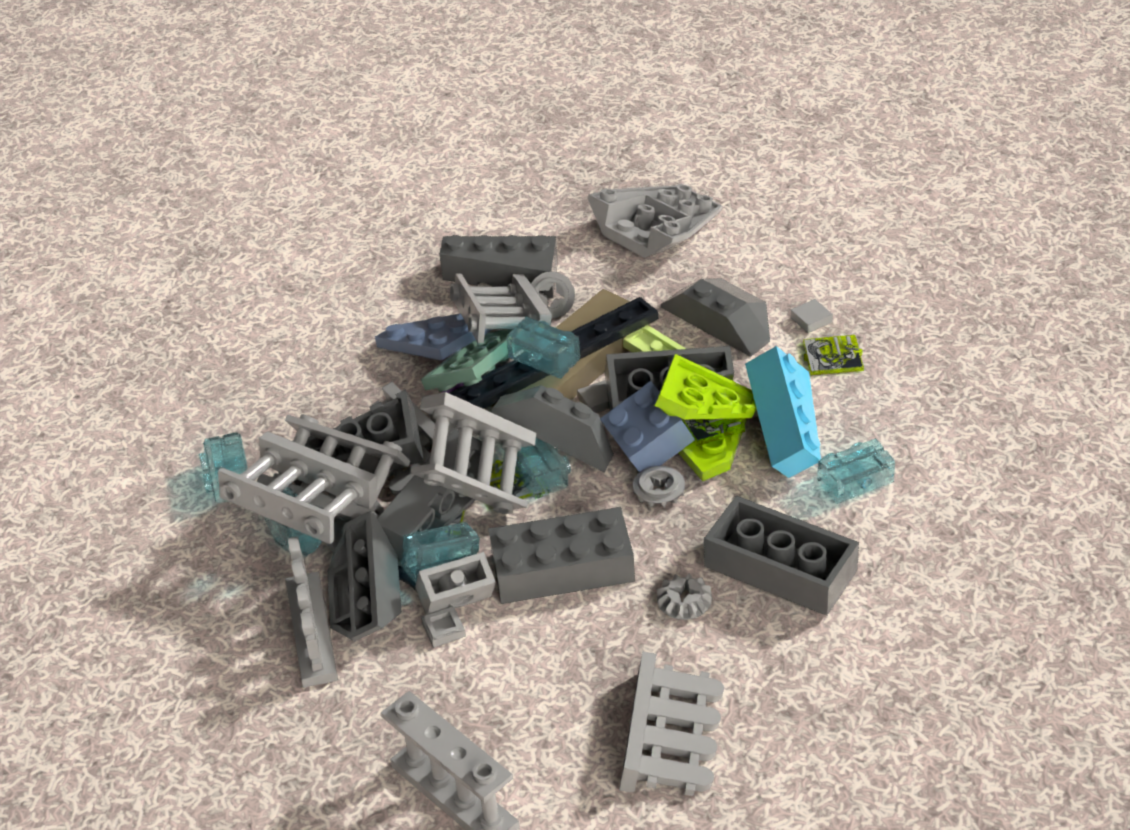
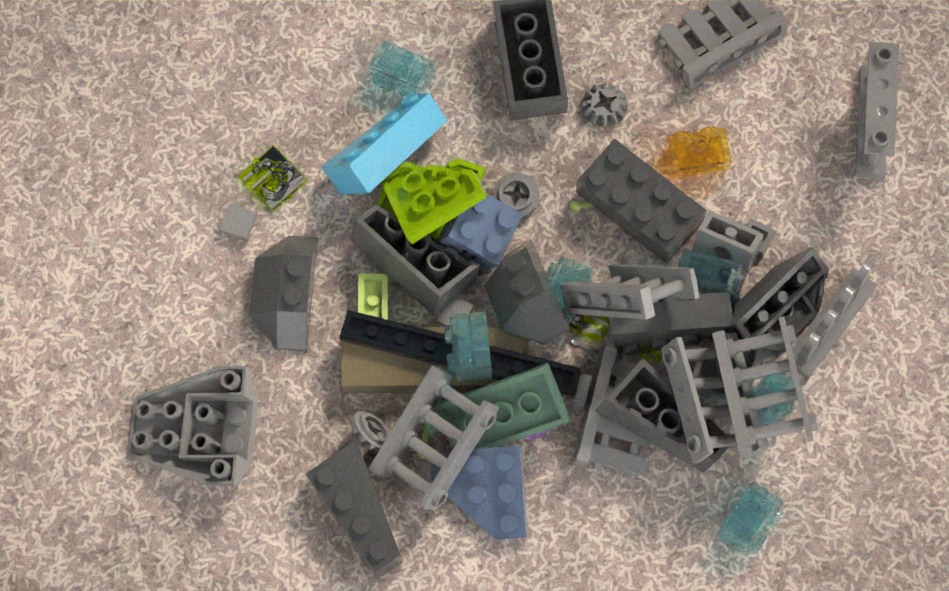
camera: 130 degrees left, 30 degrees up
(563, 626) = (686, 163): none -> clear yellow brick

